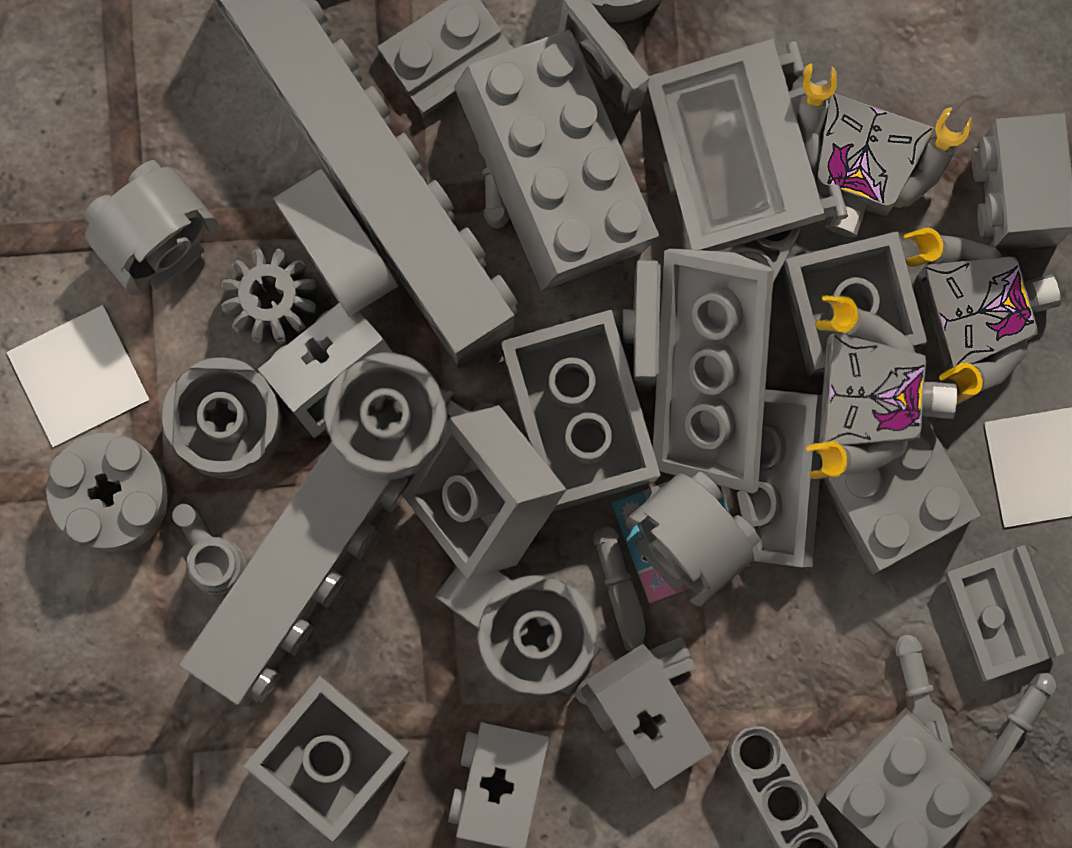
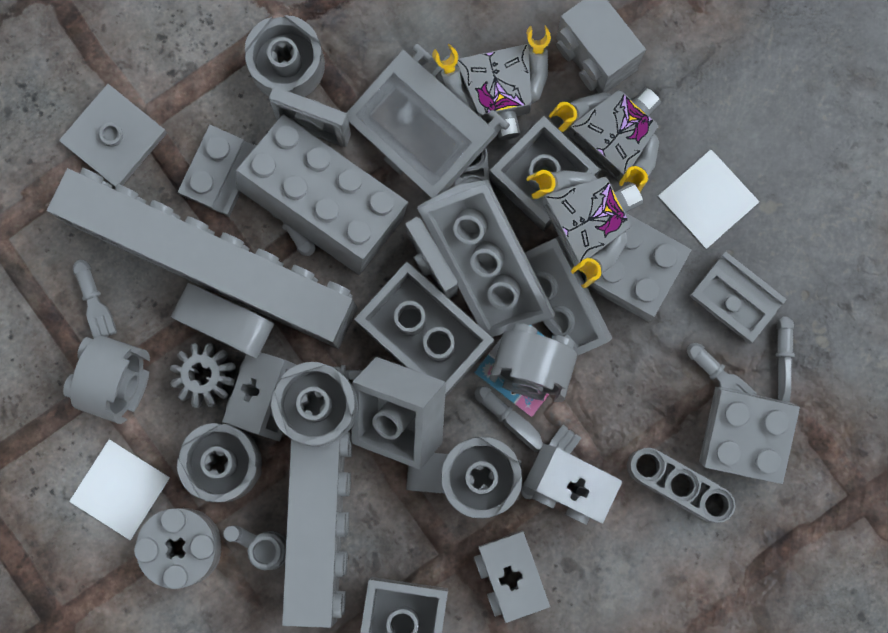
camera: 25 degrees left, 0 degrees up
(184, 138) = (97, 314): none -> light grey piece

